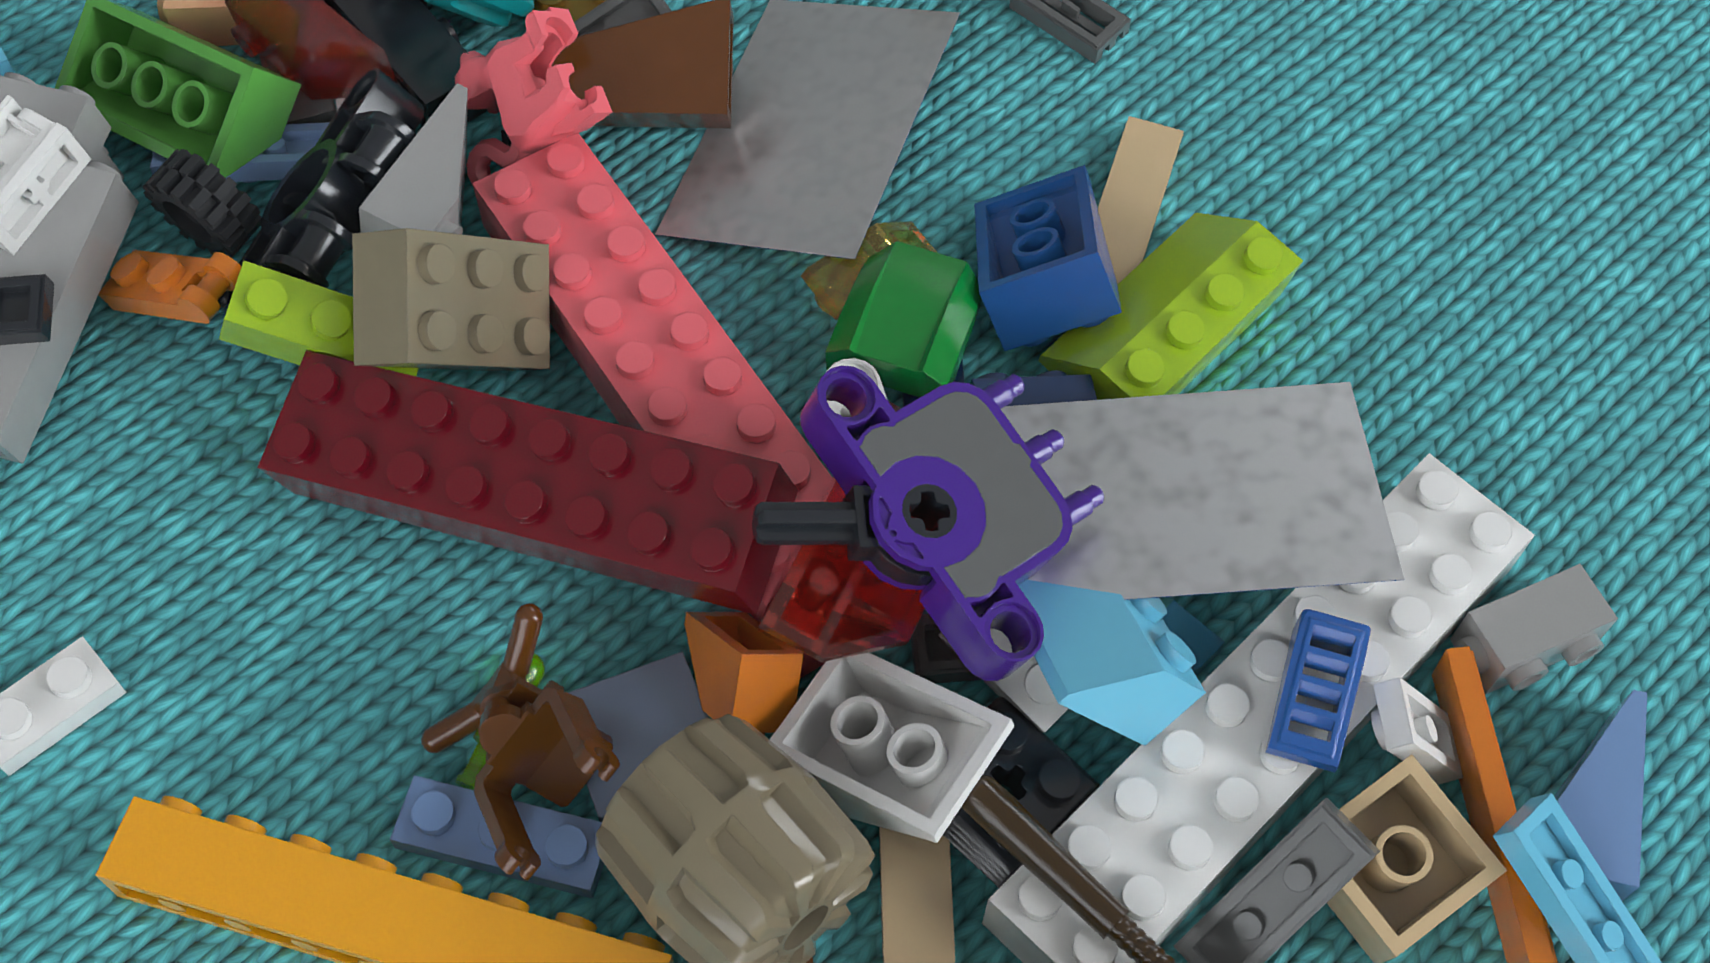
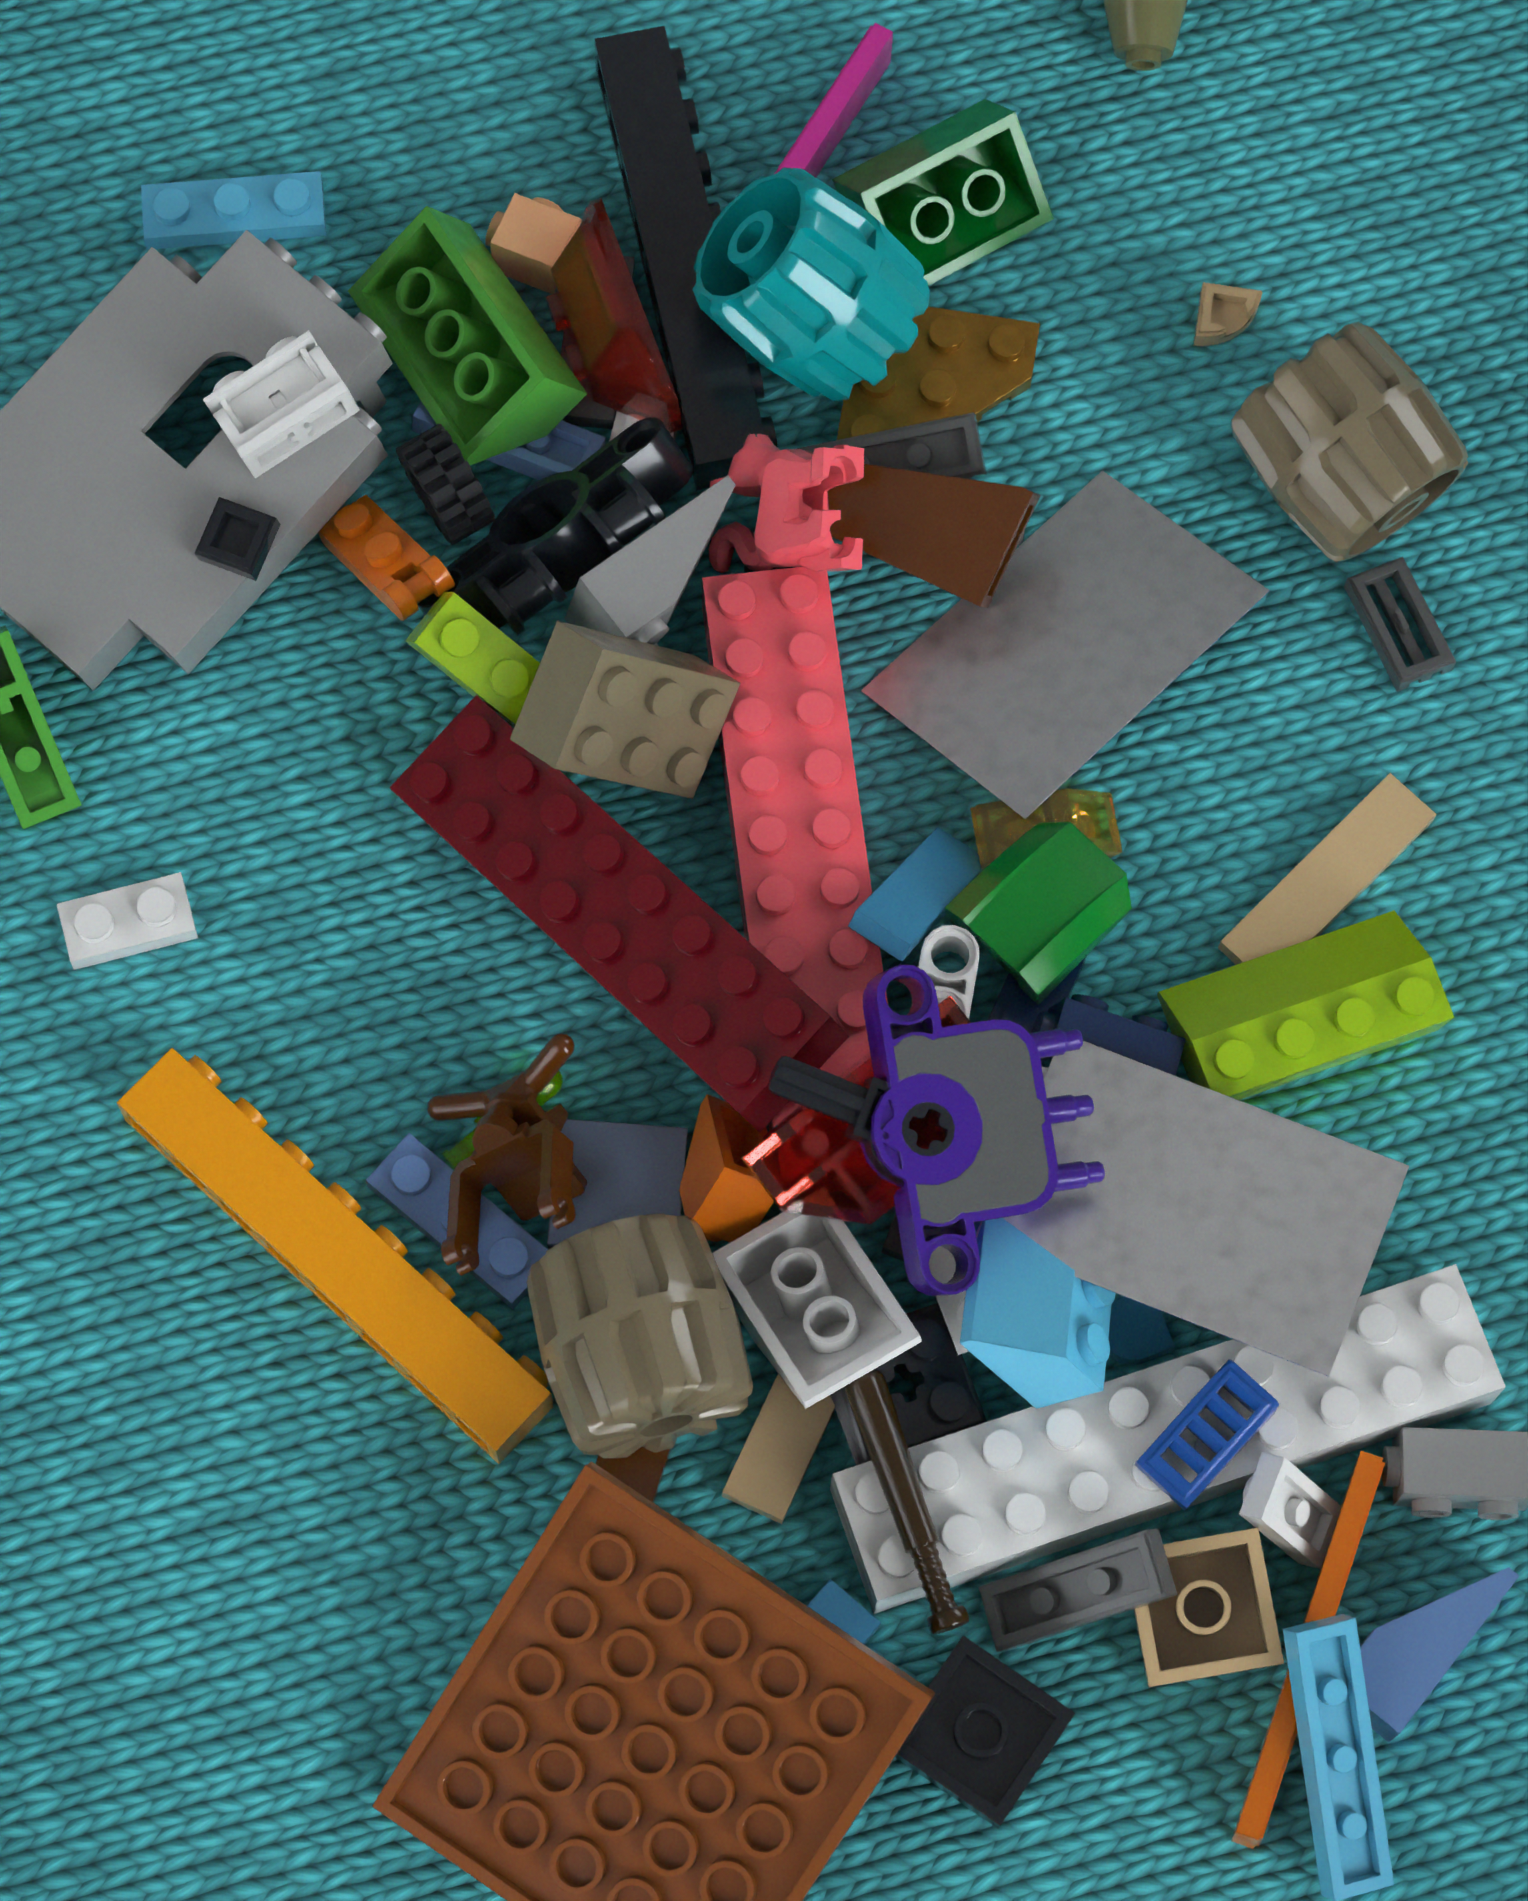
camera: 25 degrees right, 10 degrees up
(792, 357) = (916, 894): none -> dark azure tile
(1044, 260) = (1211, 895): blue slope -> none

